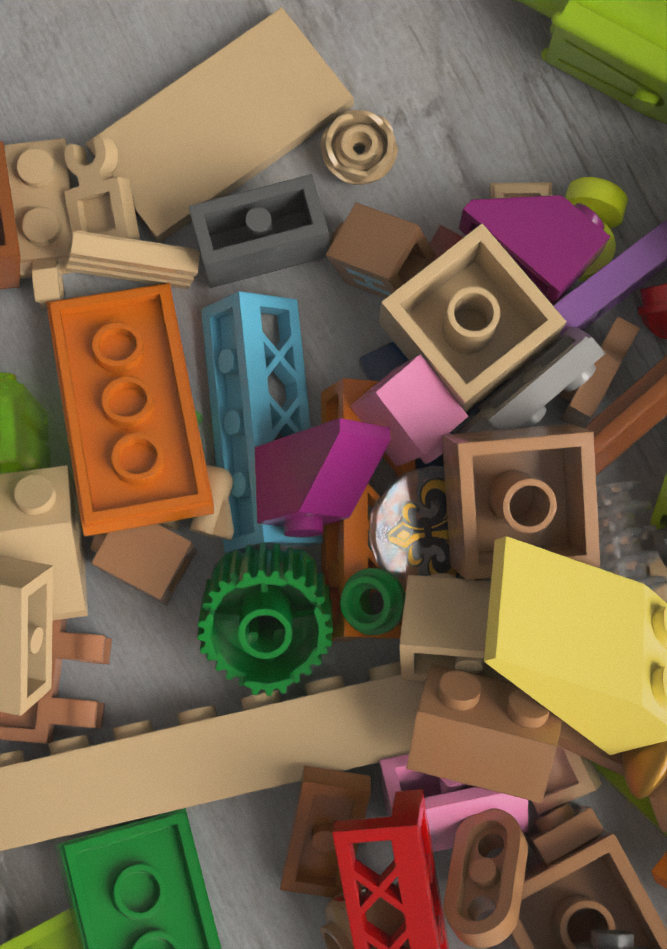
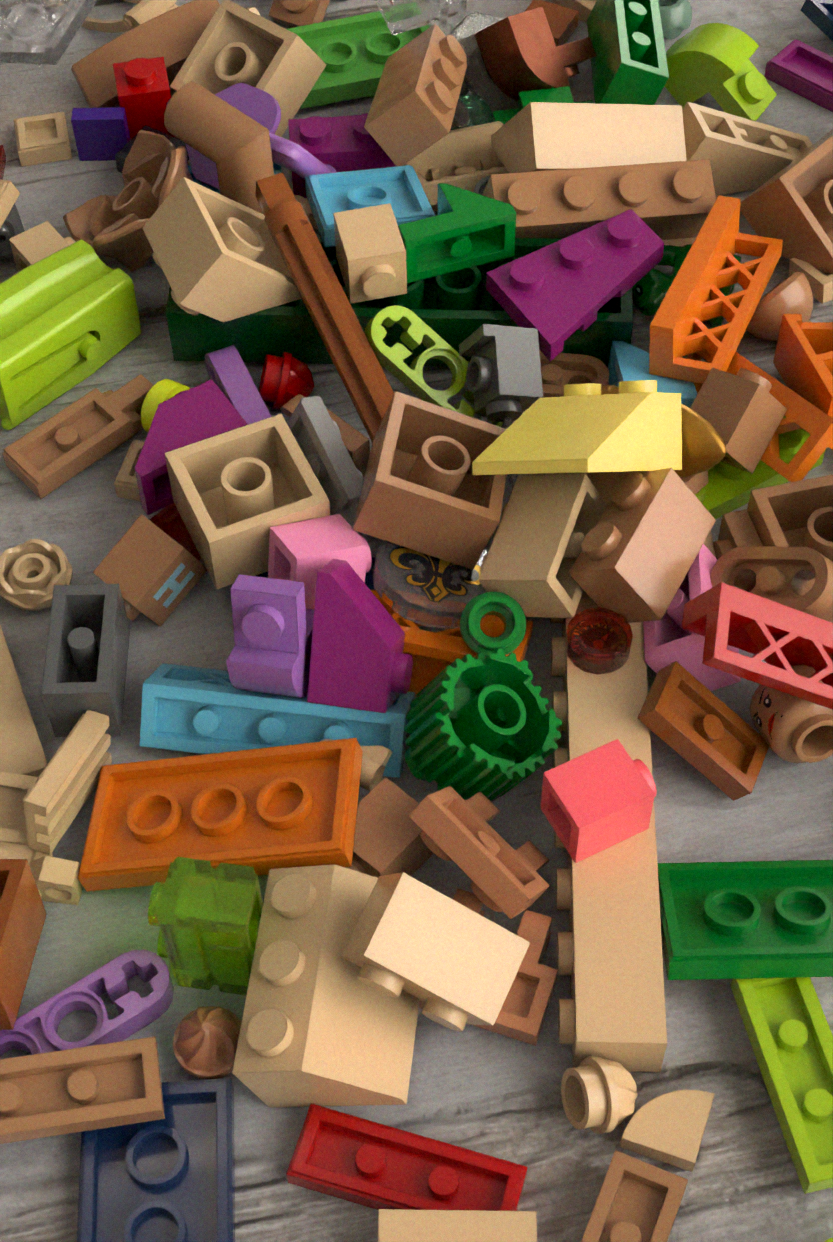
camera: 75 degrees left, 25 degrees down
(120, 648) = (460, 832): none -> nougat plate
(190, 748) = (598, 799): none -> coral brick
(293, 393) = (270, 636): none -> medium lavender brick
(387, 709) = (598, 640): none -> clear red tile
(539, 129) = (77, 436): none -> medium nougat hinge

